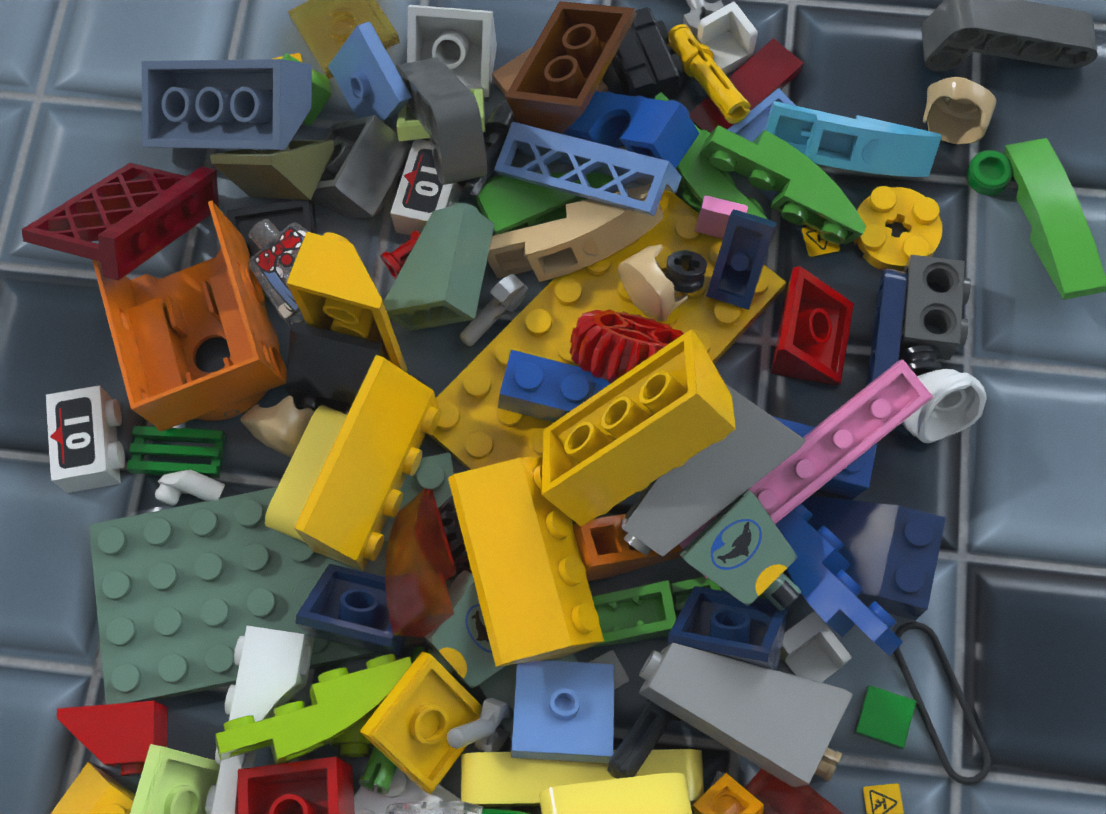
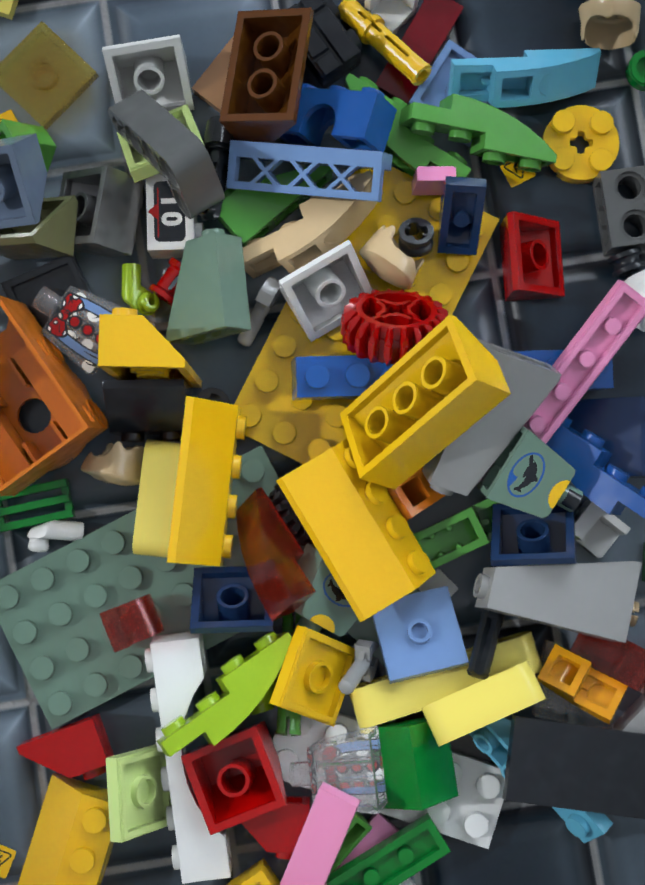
camera: 20 degrees left, 15 degrees up
(234, 599) = (131, 622): none -> clear red plate
(365, 246) = (134, 293): none -> lime arm
(369, 76) = (88, 128): medium blue plate -> none
(563, 290) = (323, 289): none -> white slope
(887, 322) = (593, 244): dark blue beam -> none

